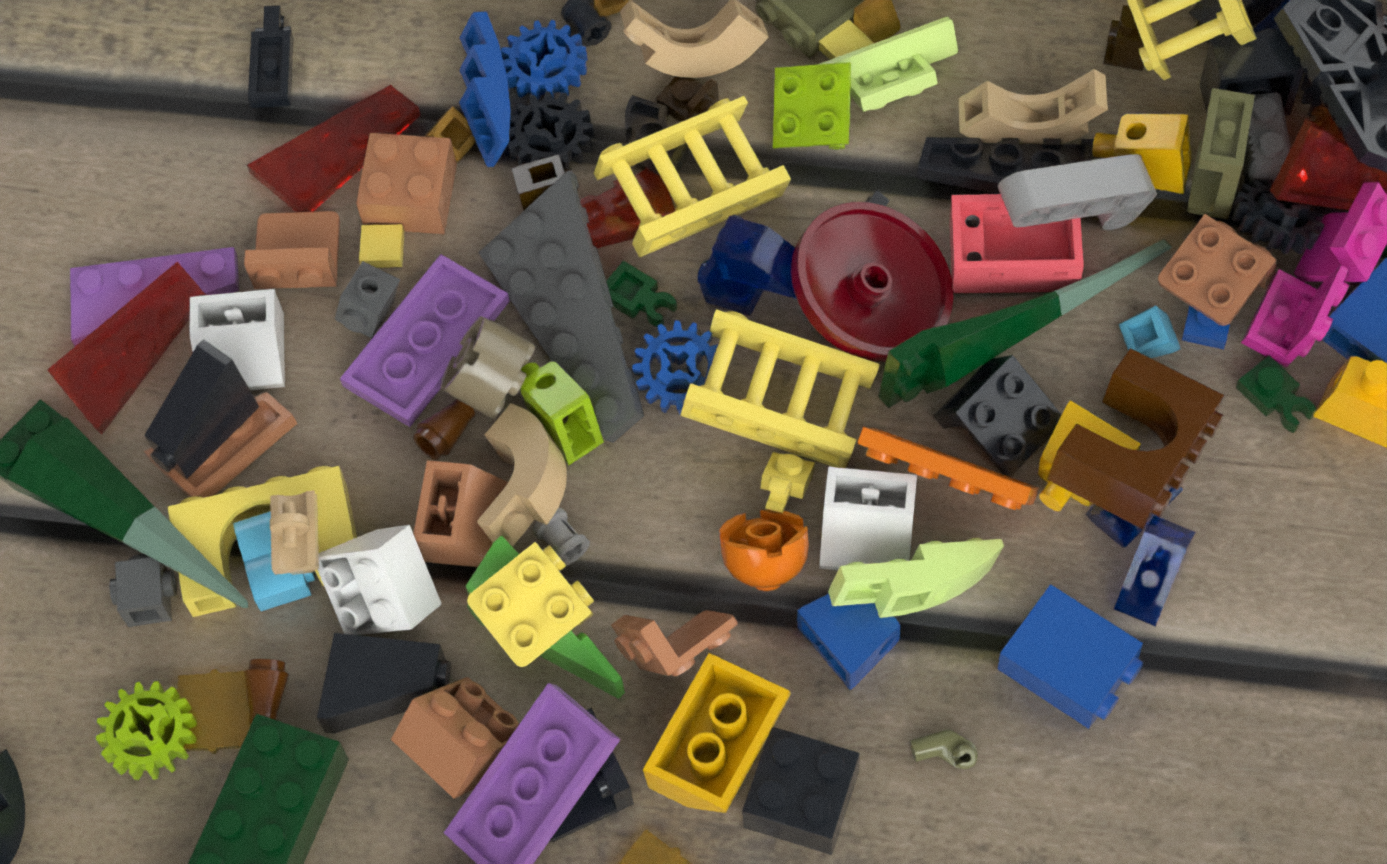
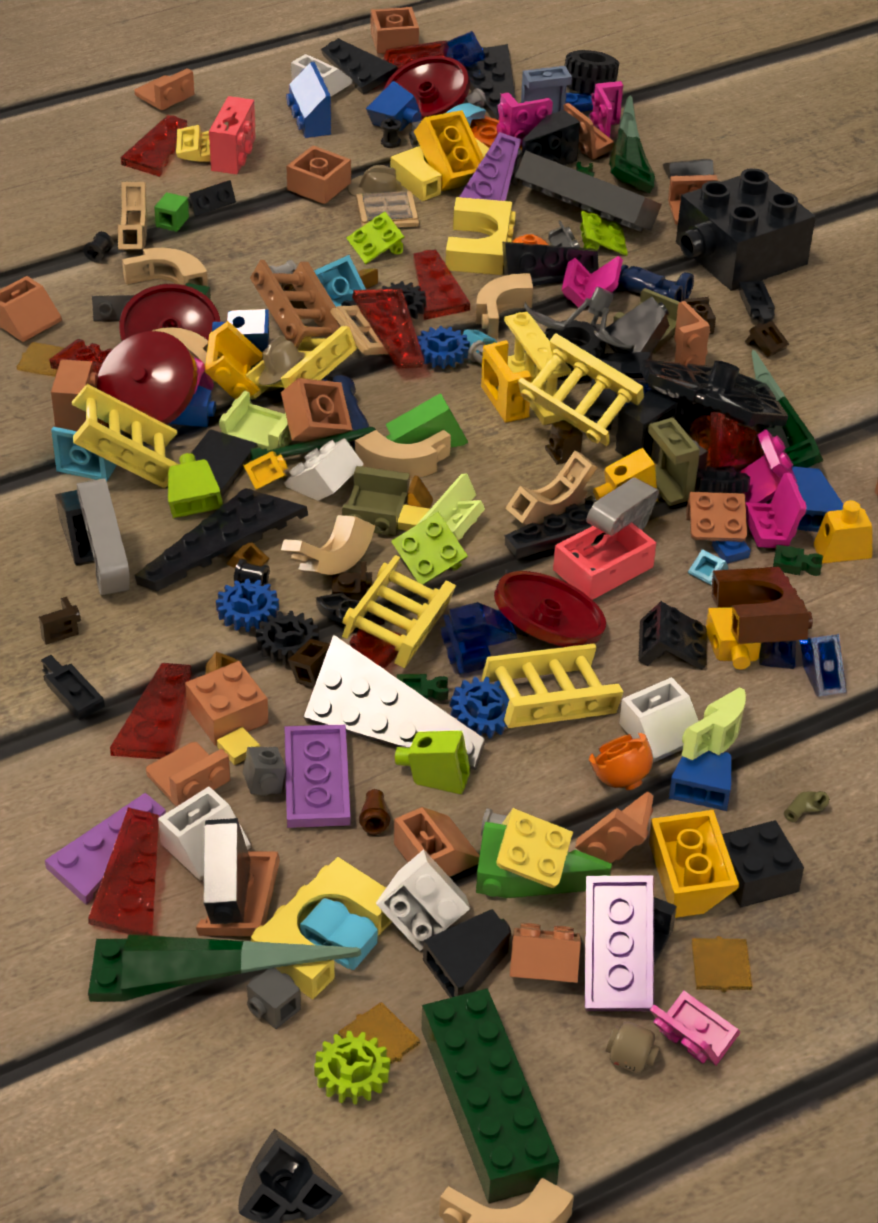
camera: 45 degrees left, 20 degrees down
(265, 687) = (402, 1002): reddish brown cone -> none
(294, 533) = (356, 895): tan hips -> none
(487, 92) = (228, 633): blue slope -> none
(487, 367) = (378, 758): dark tan brick -> none
(537, 476) = (451, 787): tan arch -> none
(785, 477) = (596, 726): light yellow plate -> none
(931, 463) = (682, 668): orange plate -> none
(953, 350) = (631, 609): dark green plate -> none
(1071, 657) = (825, 725): blue brick -> none

